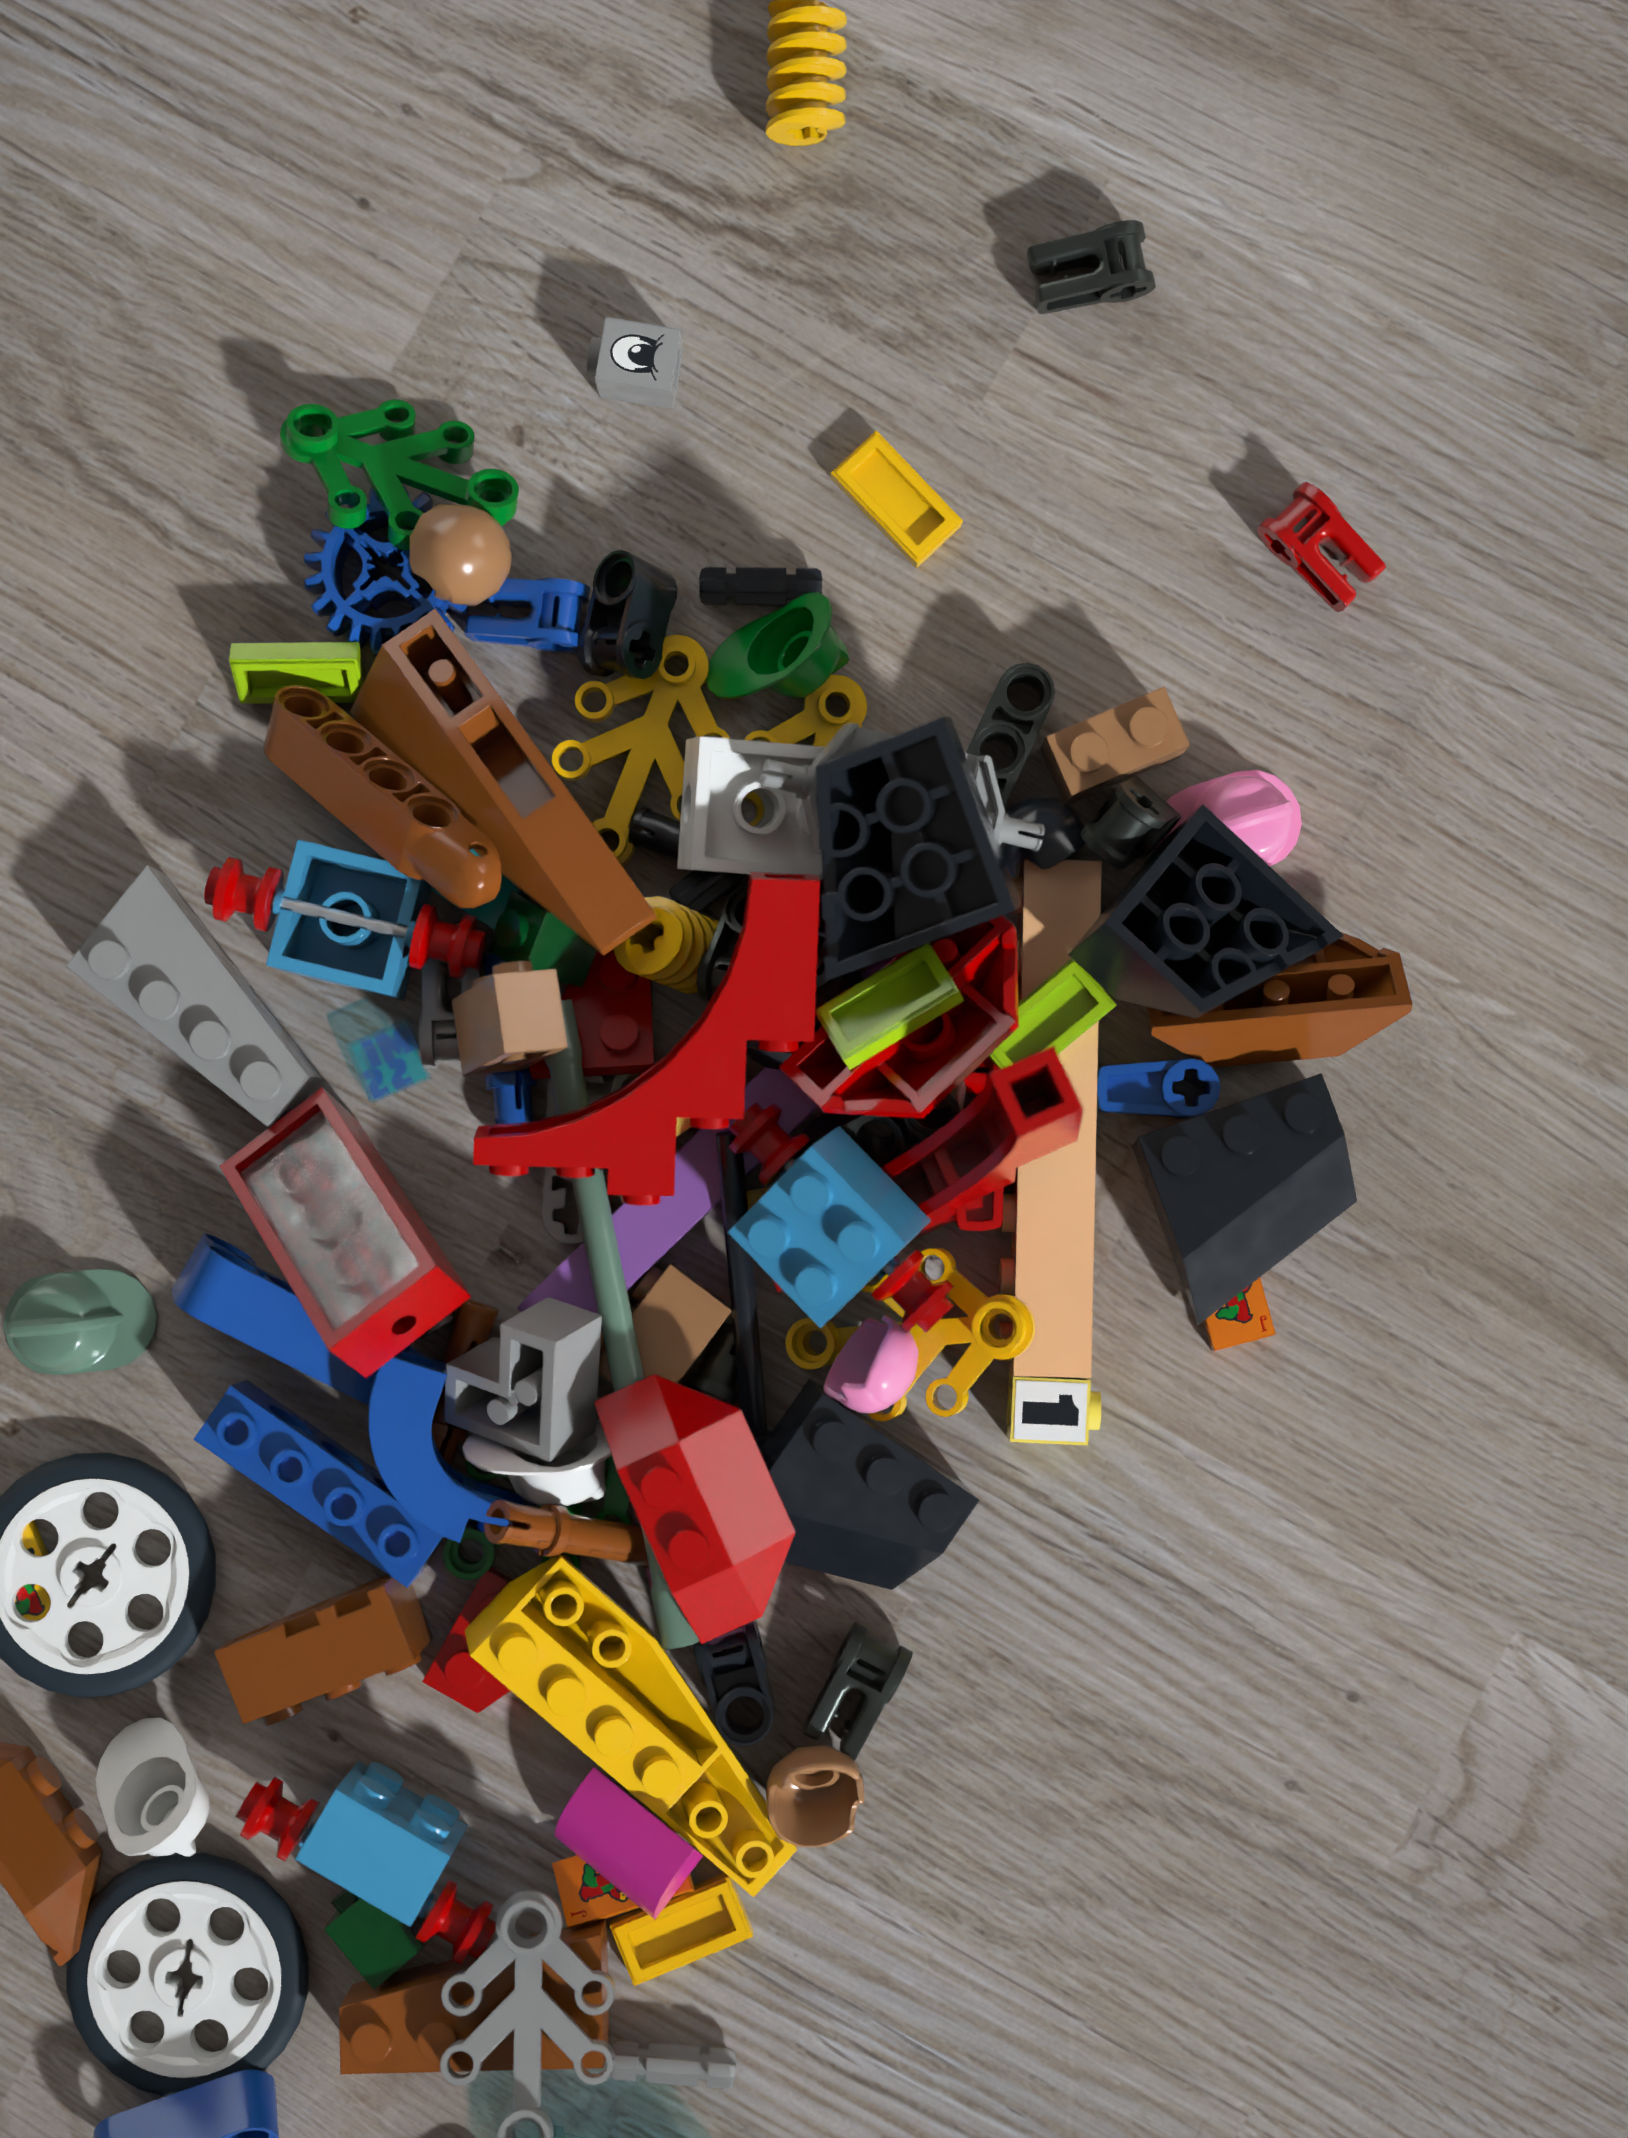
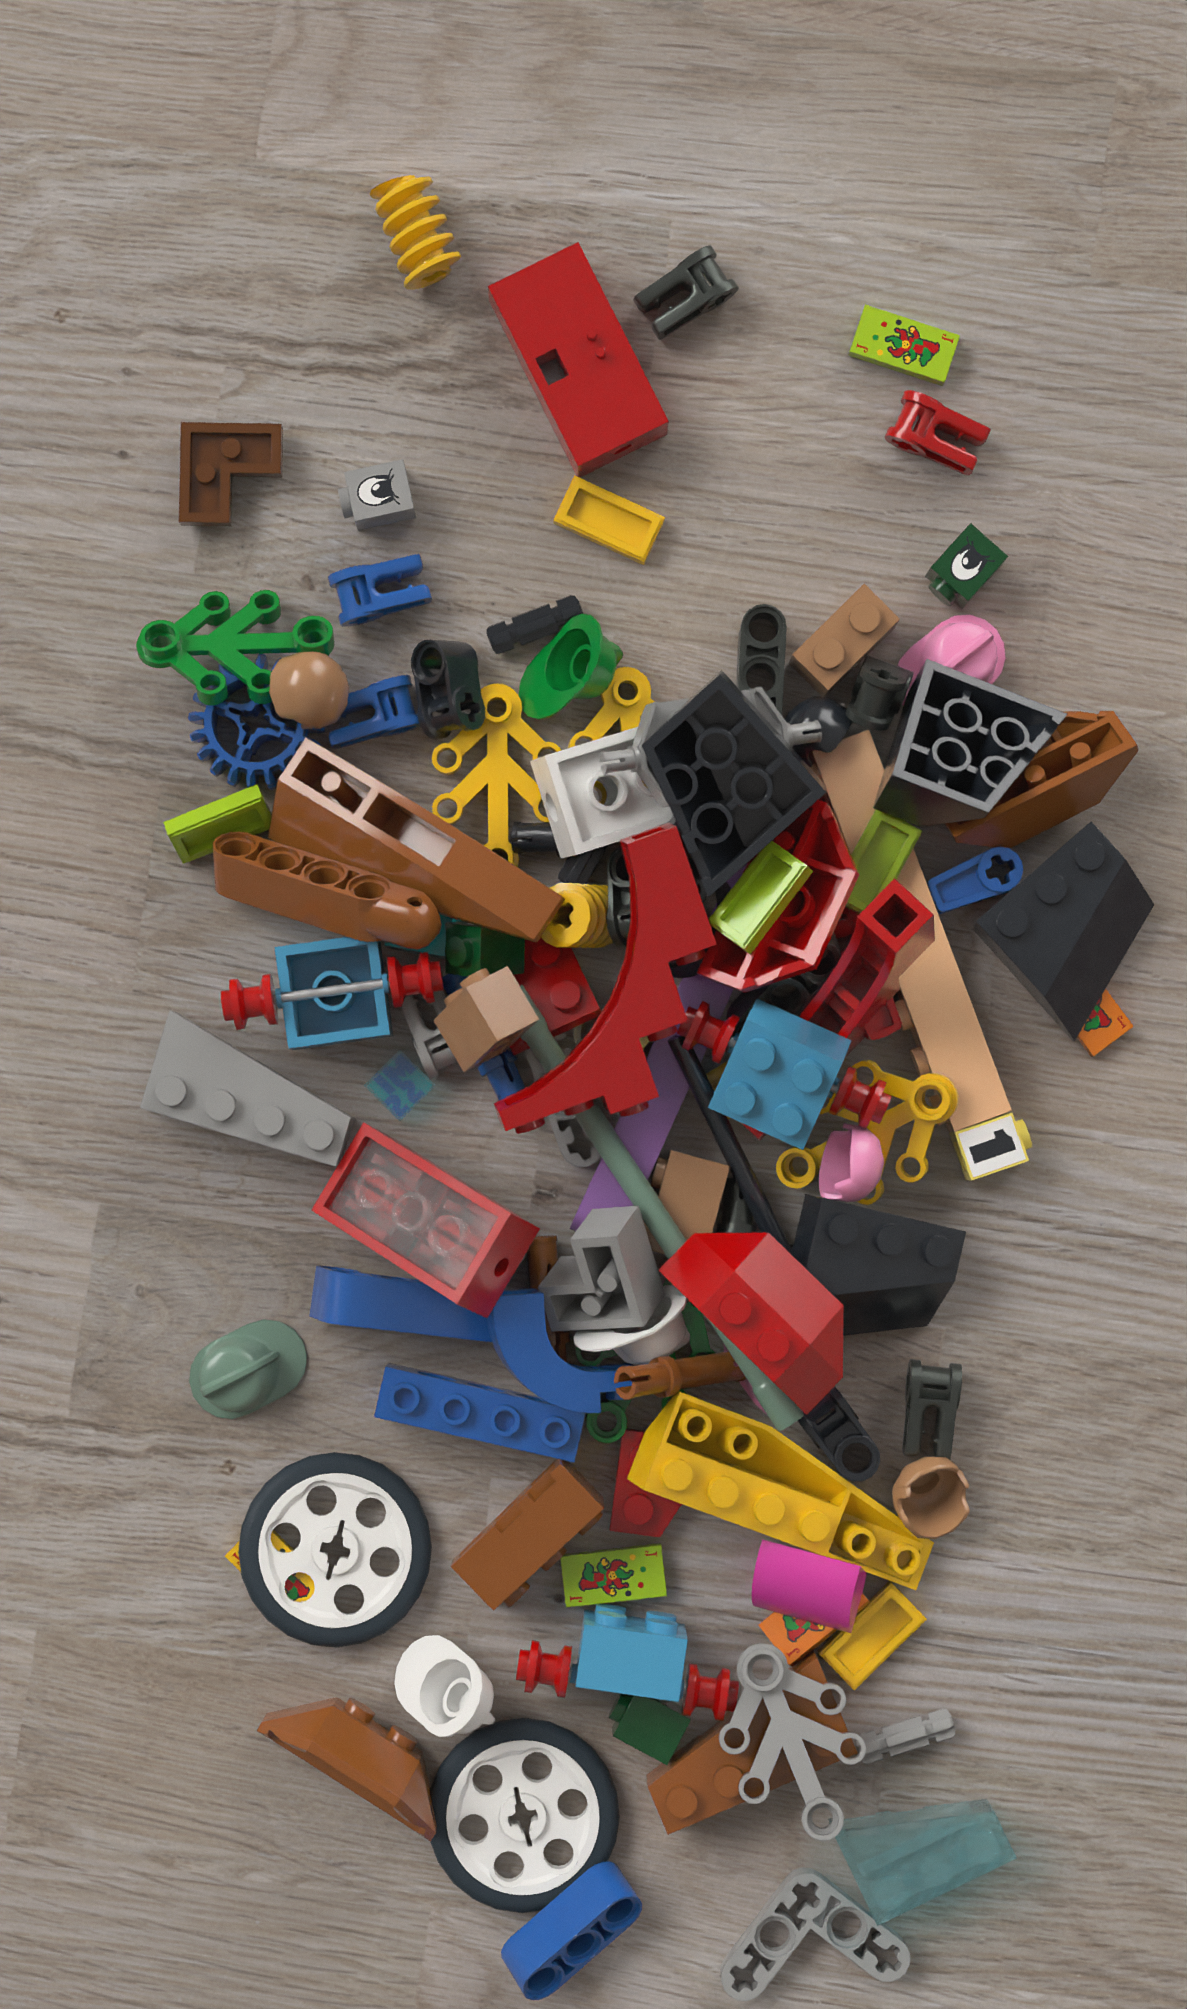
camera: 30 degrees left, 0 degrees up
(406, 1735) = (613, 1575): none -> lime tile
(467, 243) = (216, 454): none -> reddish brown plate
(589, 455) = (374, 604): none -> blue piece
(934, 295) = (578, 360): none -> red brick
(1291, 716) = (965, 567): none -> dark green brick
(1322, 430) = (904, 345): none -> lime tile

